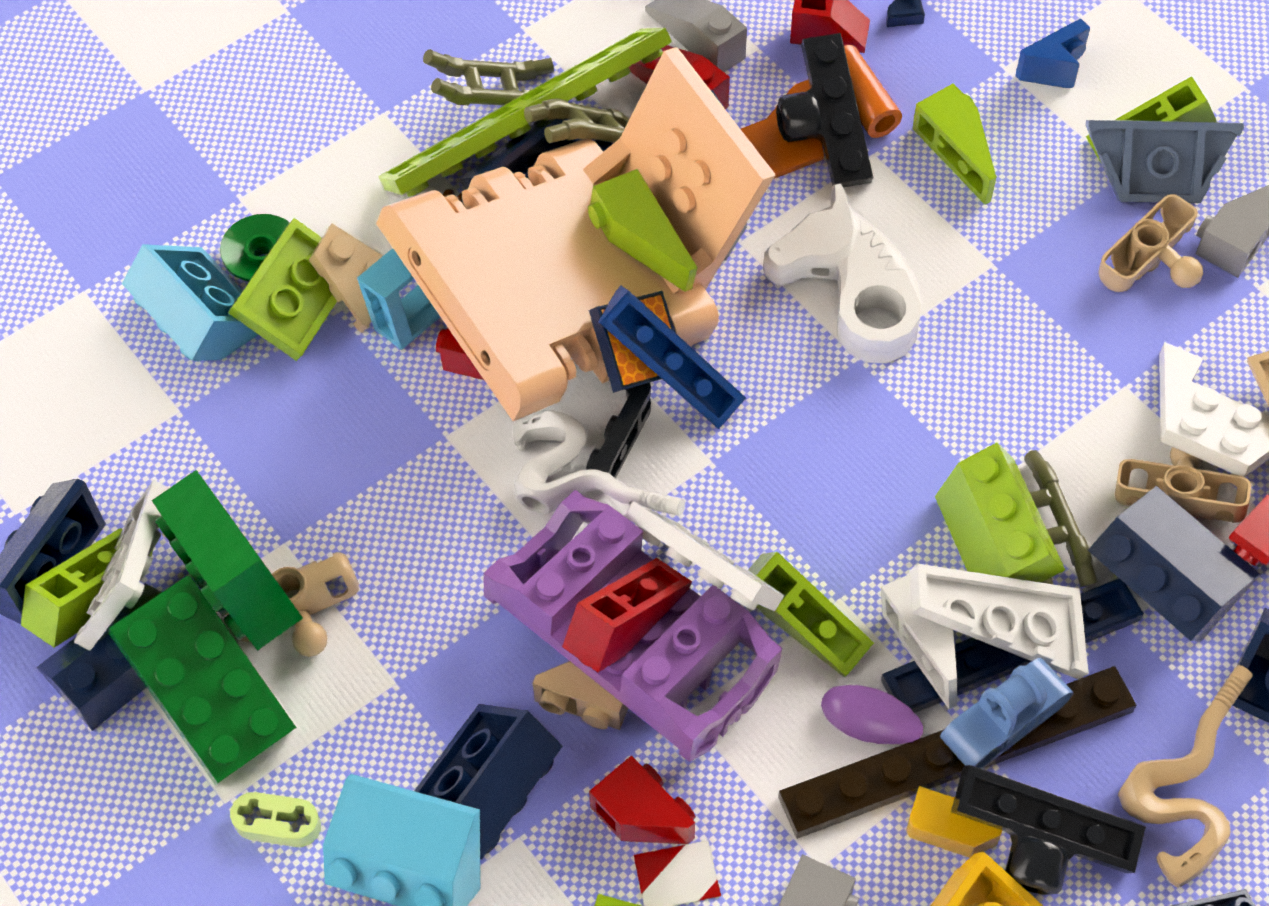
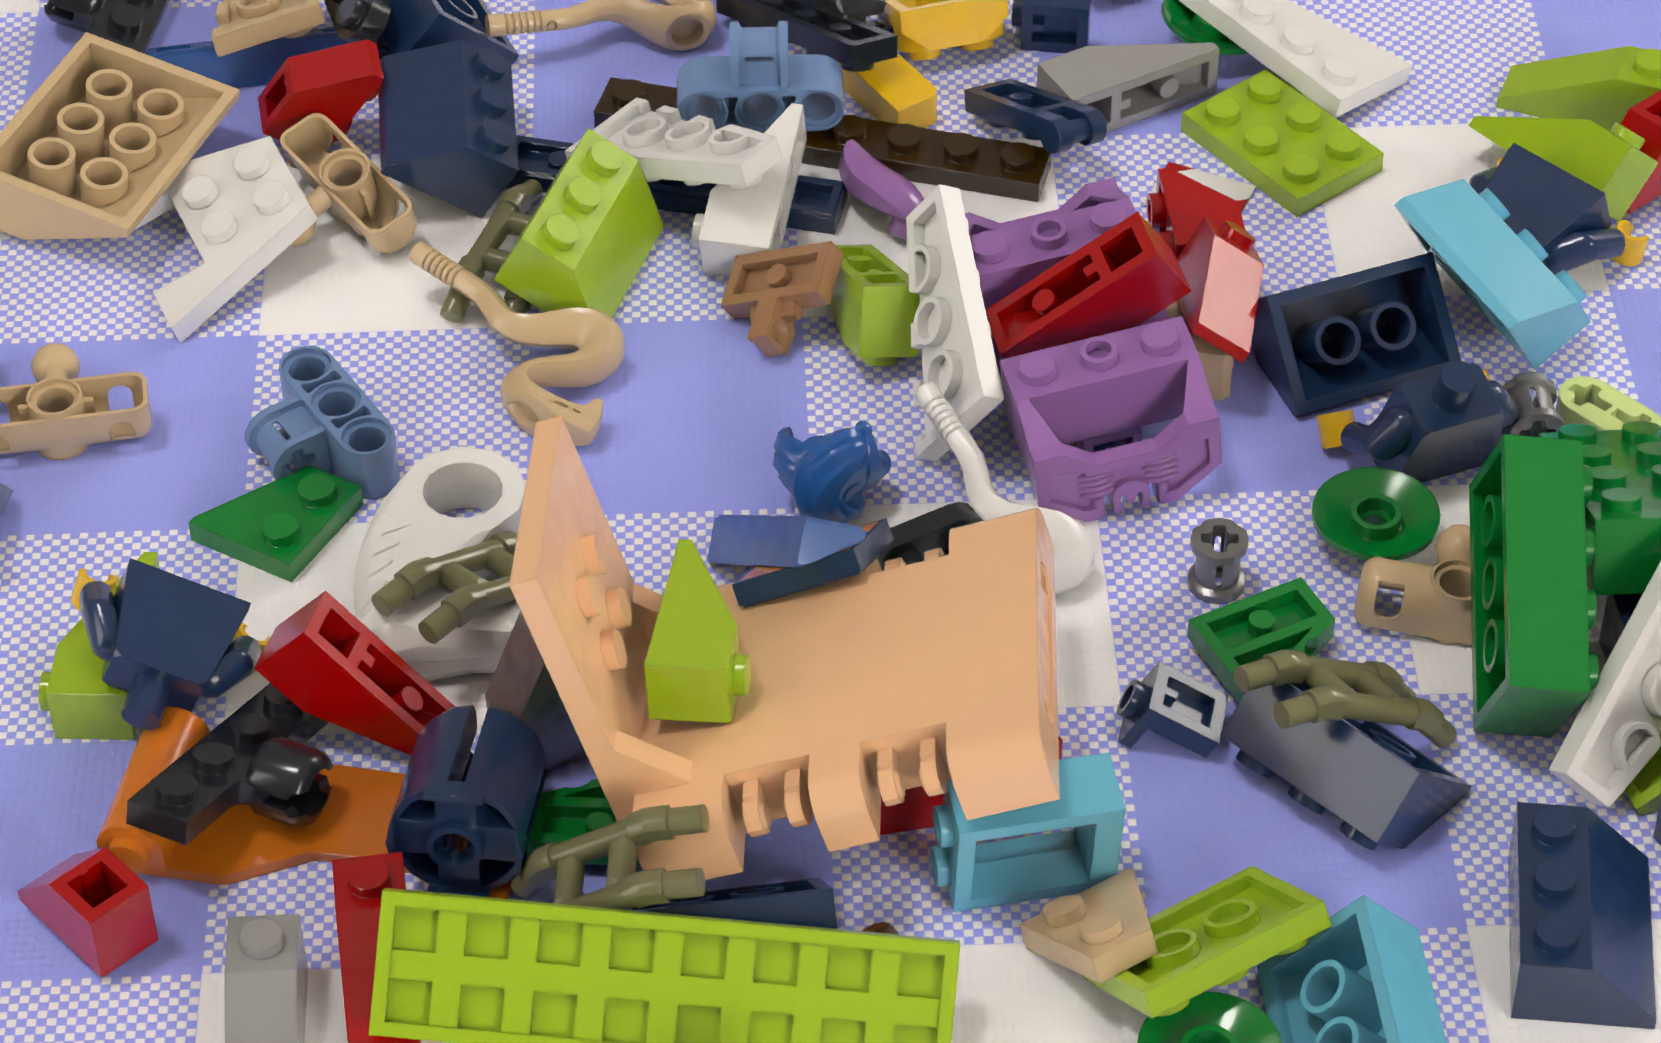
camera: 145 degrees left, 15 degrees down
(113, 426) = (1578, 920): none -> dark blue slope
(290, 452) = (1348, 766): none -> dark blue slope
(313, 772) = (1537, 413): none -> flat silver bush
(320, 437) = (1376, 697): none -> olive piece
(370, 708) = (1429, 424): none -> dark blue torso
(371, 613) = (1376, 514): none -> green dish
(386, 504) = (1261, 624): none -> green wing
(404, 425) = (1173, 708): none -> dark blue bracket
(441, 542) = (1232, 548): none -> flat silver bush
(571, 717) = (1224, 286): none -> slope
(714, 449) = (830, 470): none -> blue hair
(793, 279) = (455, 571): none -> olive piece
(827, 839) = (1037, 114): none -> dark blue plate
(829, 159) = (349, 675): none -> red slope
(845, 574) = (777, 287): none -> medium nougat hinge
(919, 119) = (164, 639): none -> dark blue torso
(928, 478) = (588, 331): none -> tan animal
(971, 271) = (281, 522): none -> green wing
(1011, 314) = (325, 425): none -> medium blue beam

